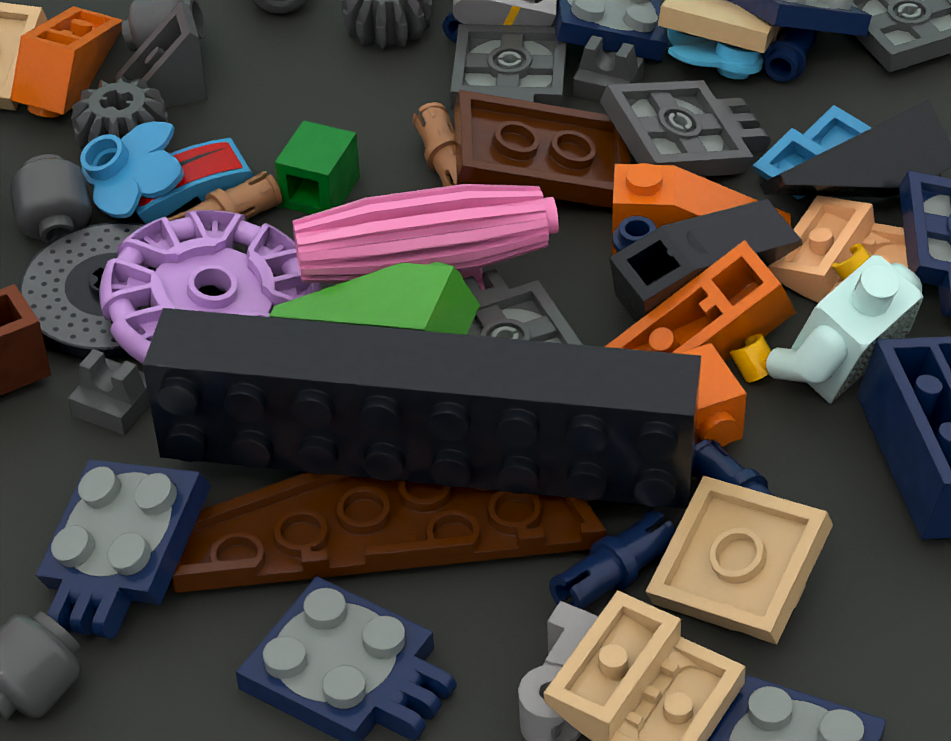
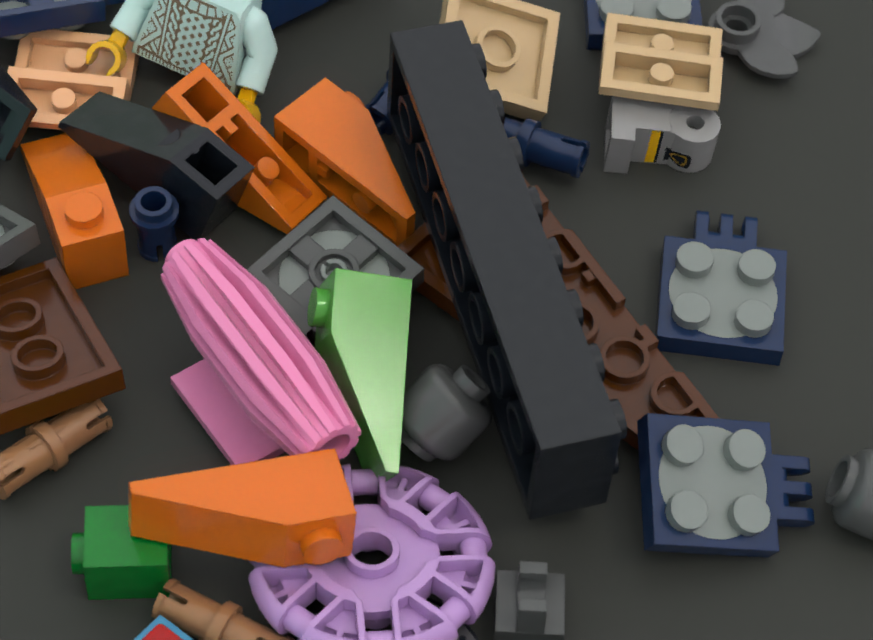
camera: 120 degrees left, 10 degrees up
(262, 199) = (255, 511): none -> orange slope

